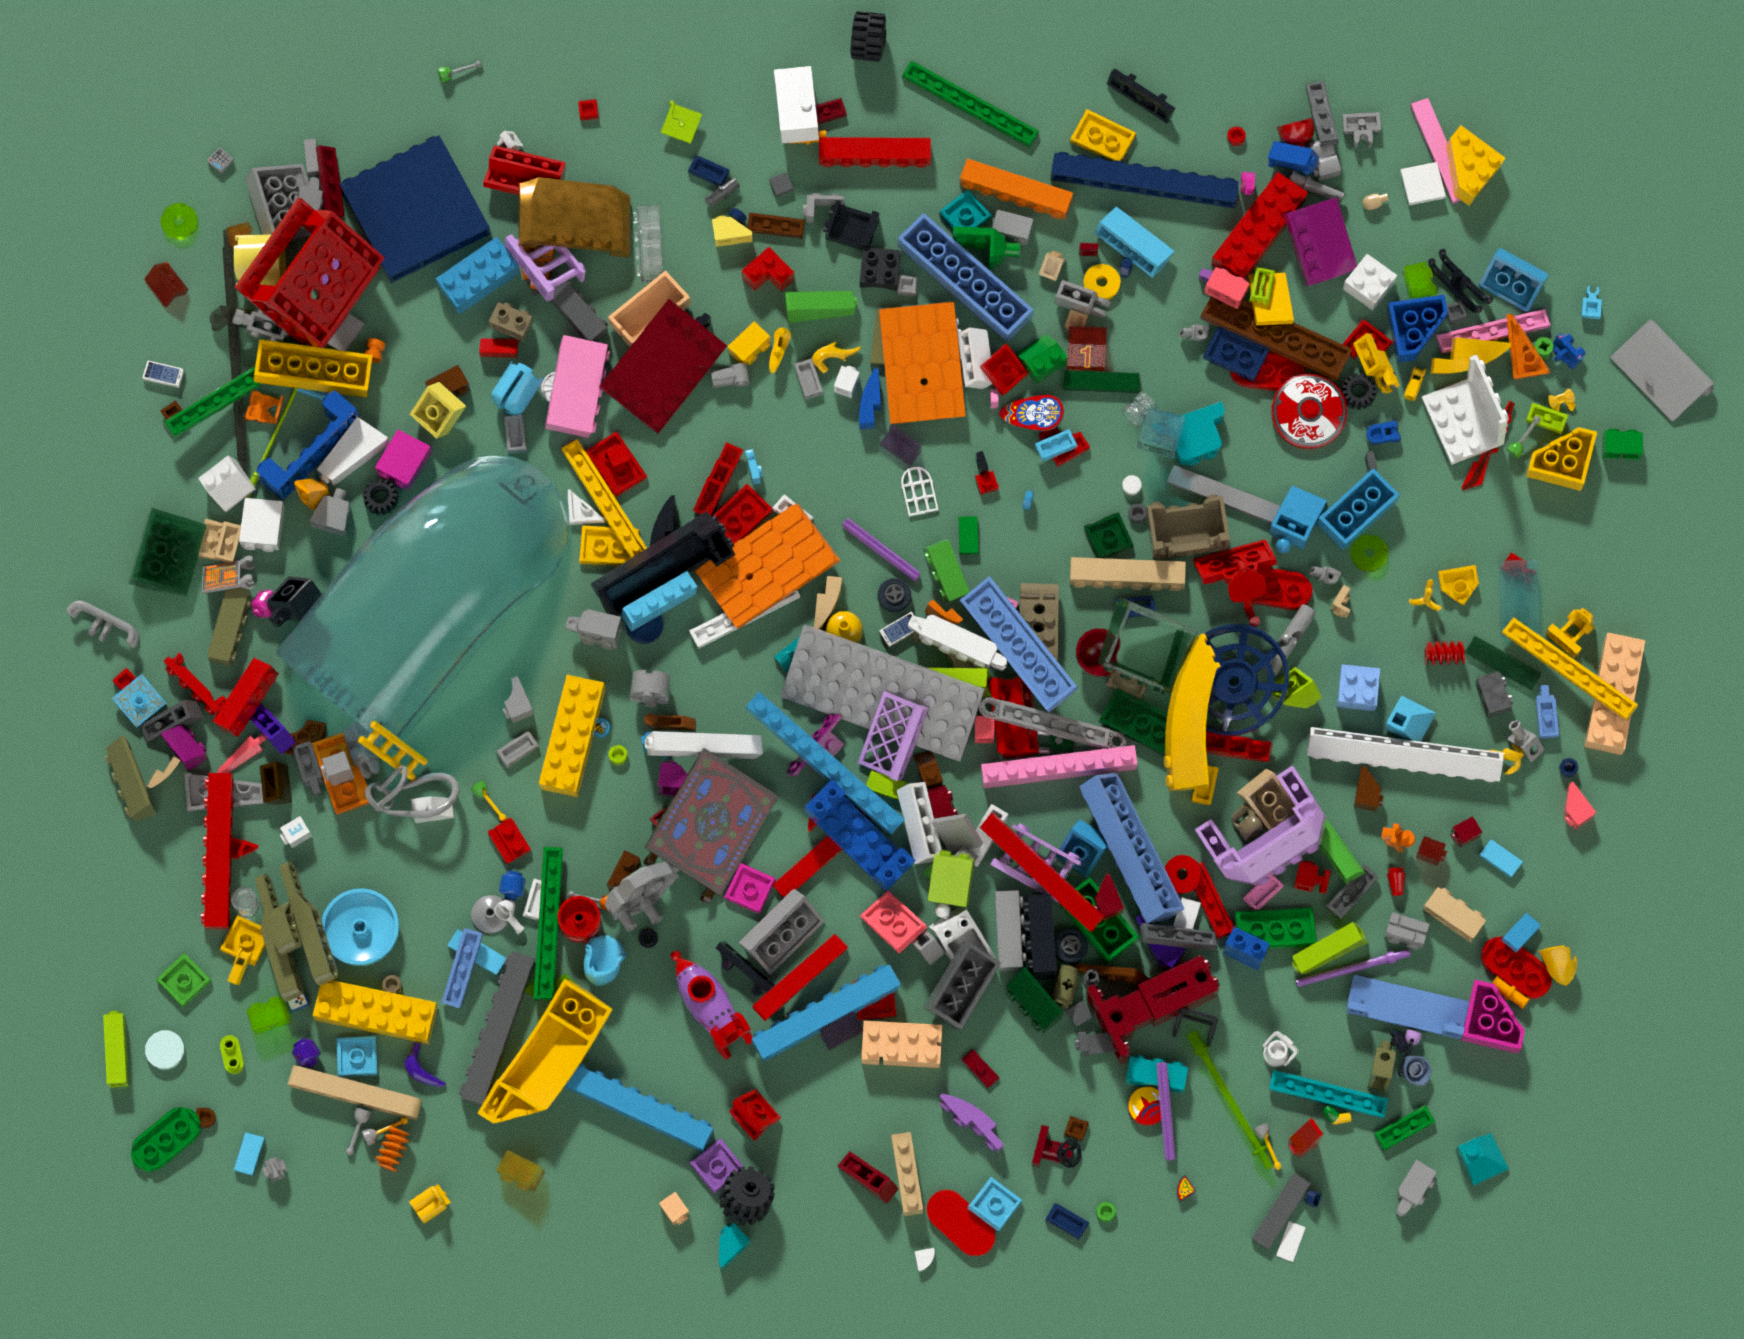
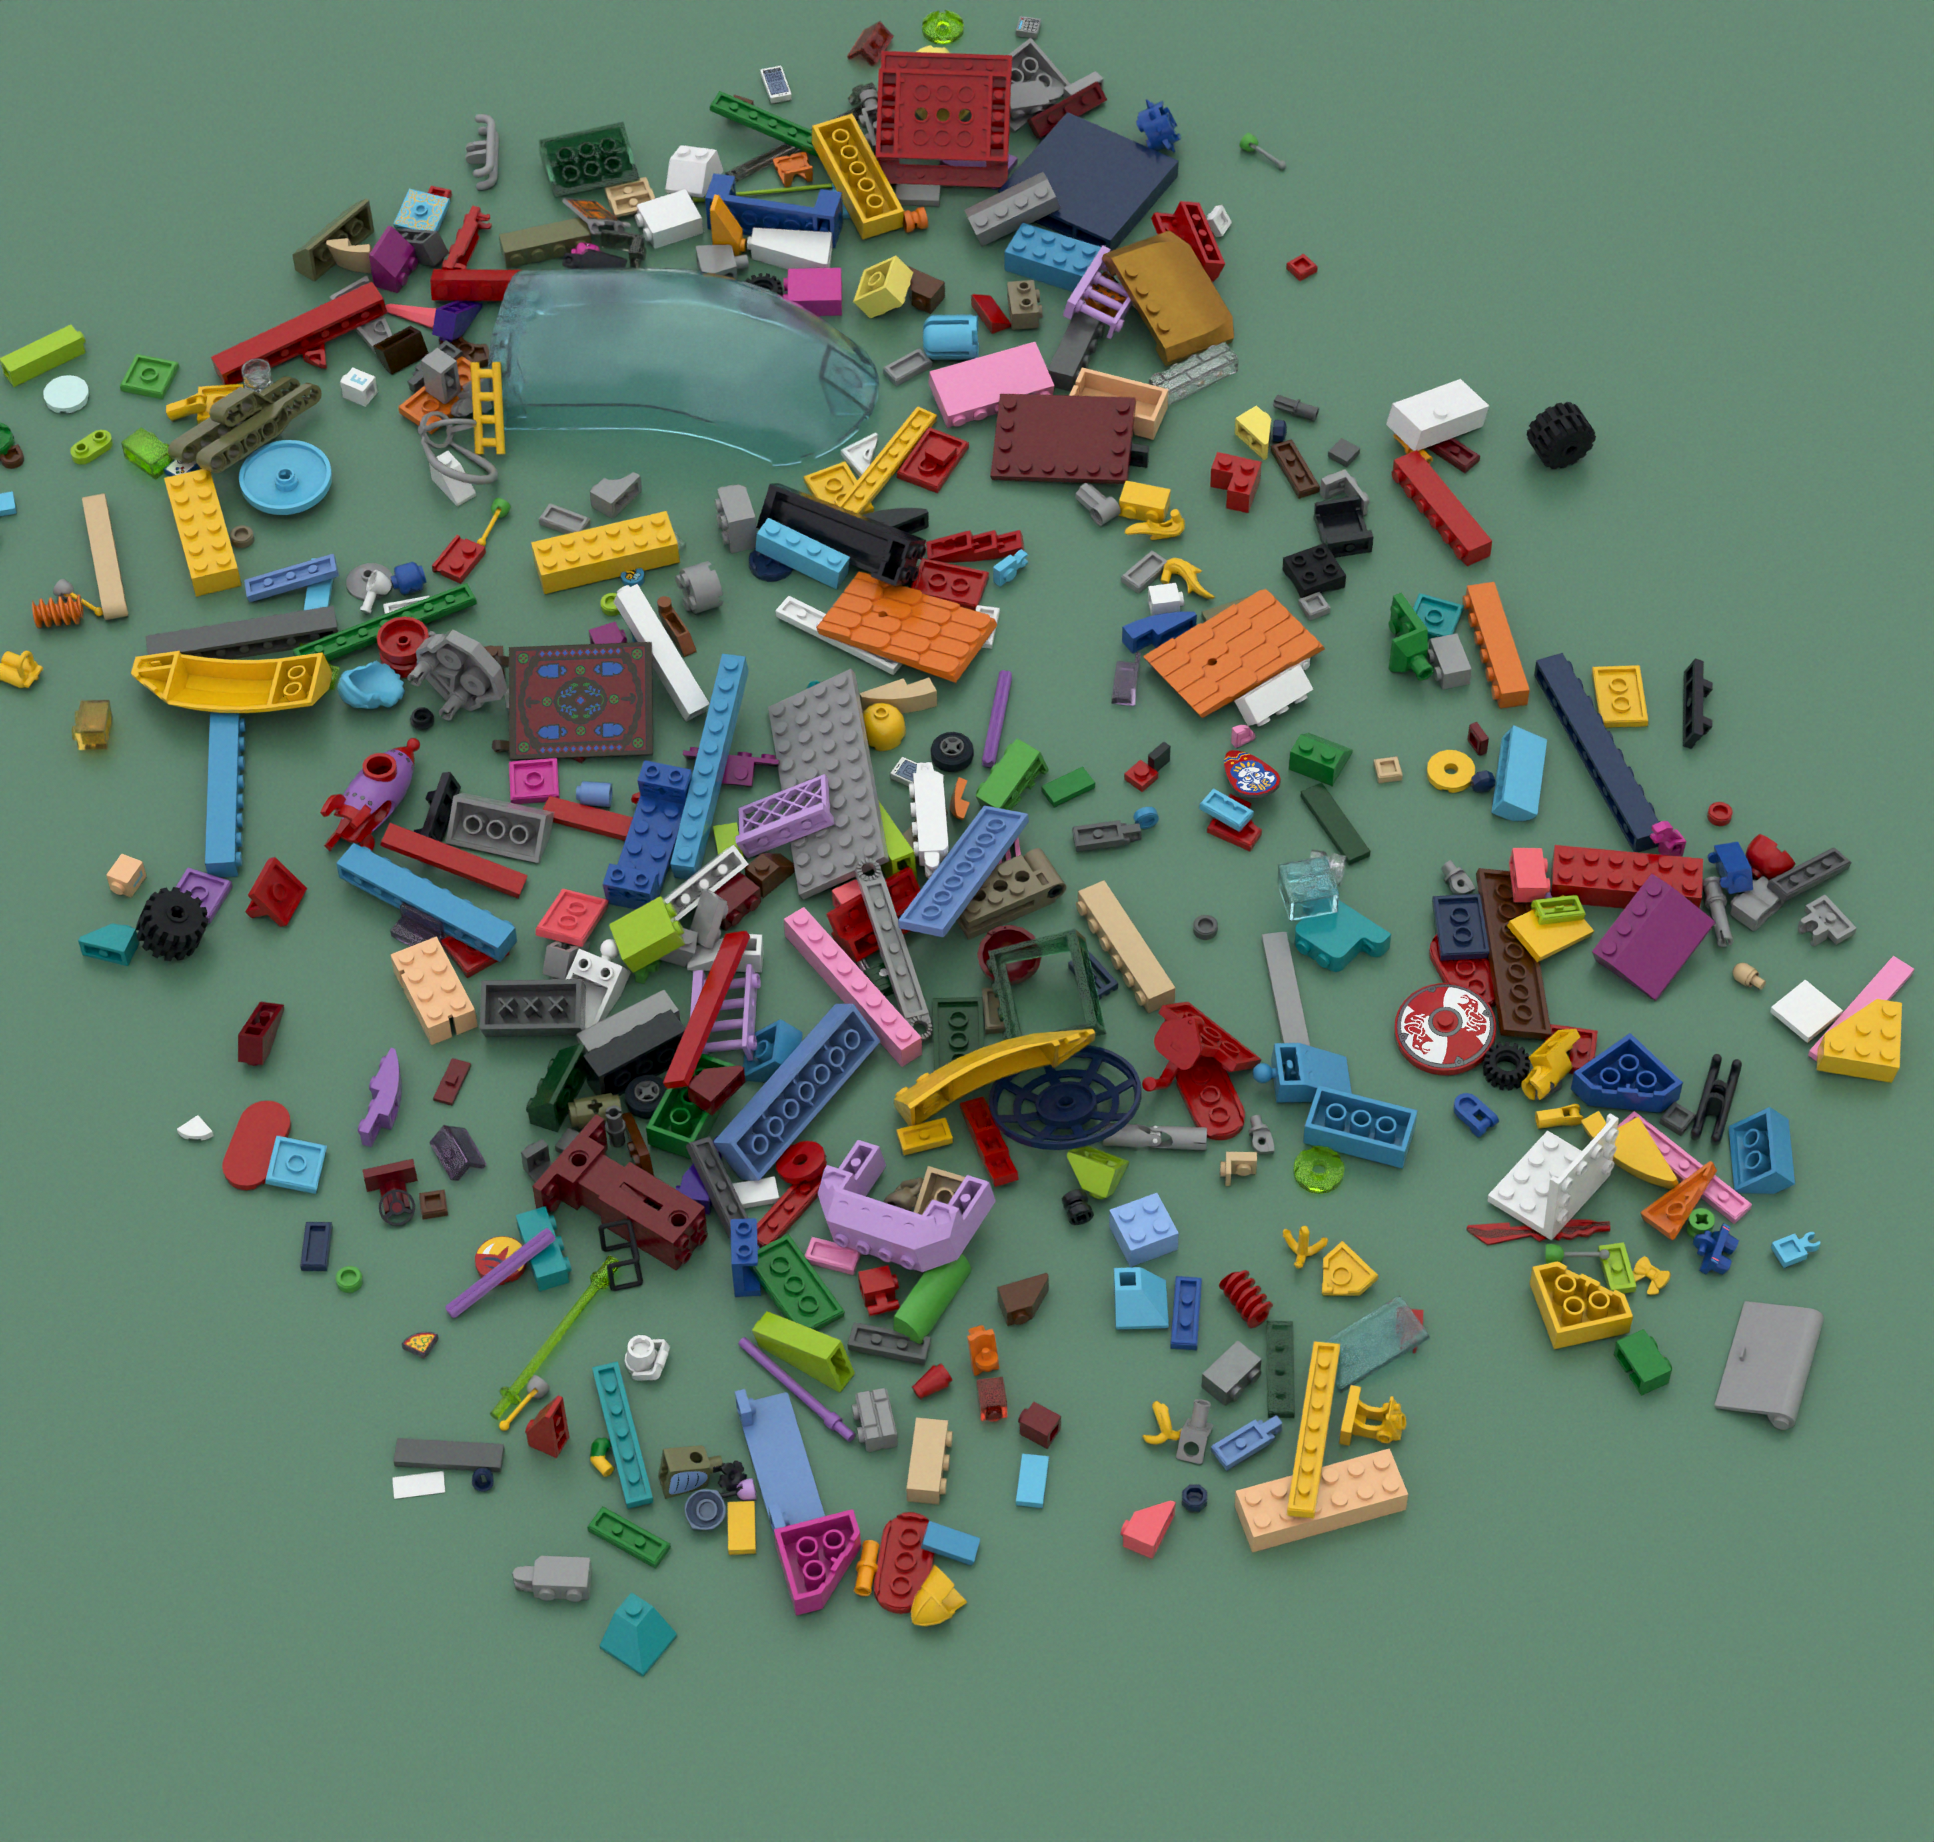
camera: 60 degrees right, 20 degrees down
(283, 565) = (626, 242): none -> clear smoke bracket
(306, 1052) = (124, 497): dark purple head -> none
(357, 1056) = (147, 543): medium azure tile -> none
(361, 1117) = (82, 574): light grey hinge -> none
(398, 129) = (1158, 126): none -> blue brick
(413, 277) = (1011, 208): none -> light grey slope
(417, 1072) = (157, 597): dark purple piece -> none
(681, 123) = (1344, 340): lime hat -> none
(708, 171) = (1312, 387): dark blue tile -> none
(790, 853) = (595, 793): none -> medium blue brick
(819, 305) = (1229, 534): bright green slope -> none
(907, 1174) = (283, 1064): tan brick -> none
(924, 496) = (1085, 731): white window -> none
(965, 277) = (1358, 645): medium blue brick -> none
(970, 104) = (1563, 567): green tile -> none
(1004, 369) = (1278, 723): red tile -> none
(1025, 535) = (1105, 835): none -> dark grey hinge
(1044, 1093) = (456, 1151): none -> panel
(1052, 265) = (1434, 715): tan bracket -> none
(1080, 299) = (1412, 752): light grey hinge -> none
(1086, 348) = (1363, 789): clear red slope -> none
(1108, 536) = (1159, 913): dark green tile -> none
(1131, 485) = (1234, 906): white tile -> none
(1187, 529) = (1213, 971): dark tan windscreen -> none
(1320, 720) = (1078, 1210): none -> black wheel
(1370, 282) = (1645, 1012): white brick -> none
(1370, 461) = (1428, 1116): dark grey tile -> none
(1405, 754) = (1093, 1315): white brick -> none
(1418, 281) = (1686, 1058): clear neon green brick -> none
(1430, 696) = (1186, 1313): none -> blue tile
(1437, 1054) = (741, 1528): none -> yellow tile

